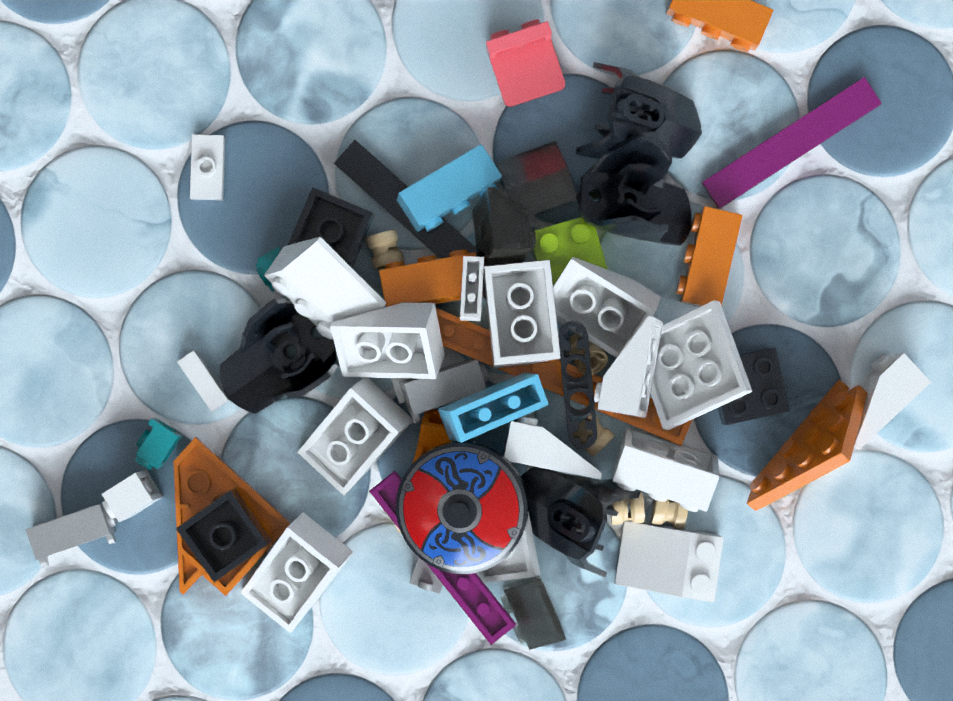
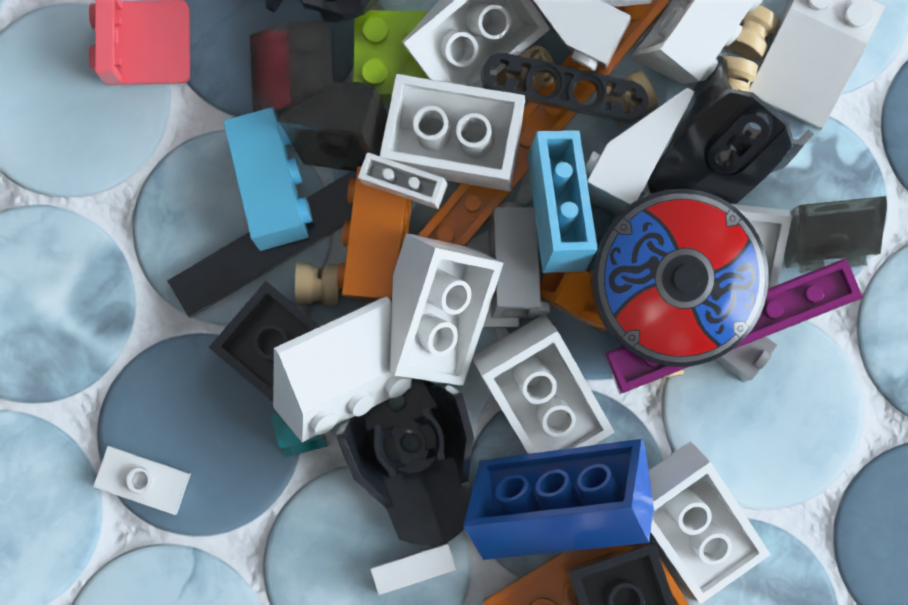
camera: 75 degrees left, 5 degrees down
(280, 470) = (561, 501): none -> blue slope

